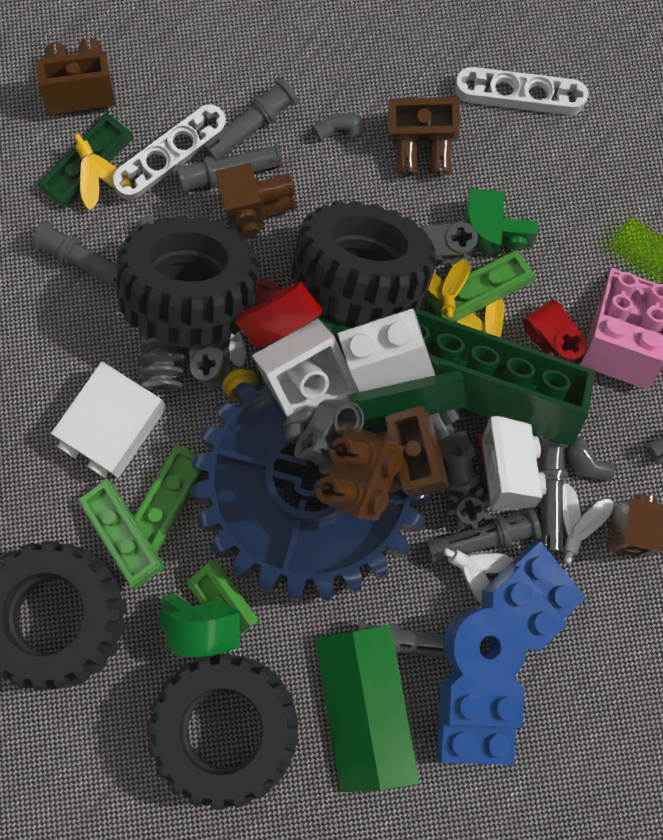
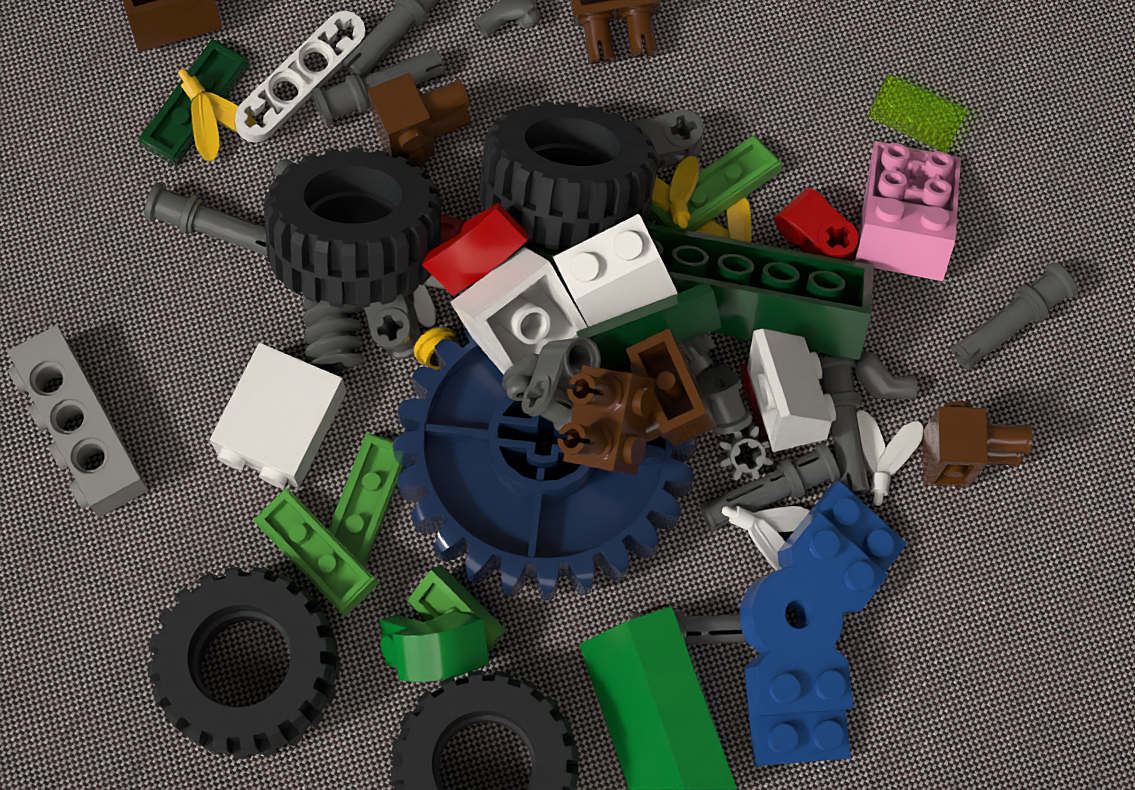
camera: 10 degrees left, 5 degrees down
(485, 213) = (708, 95): green brick -> none

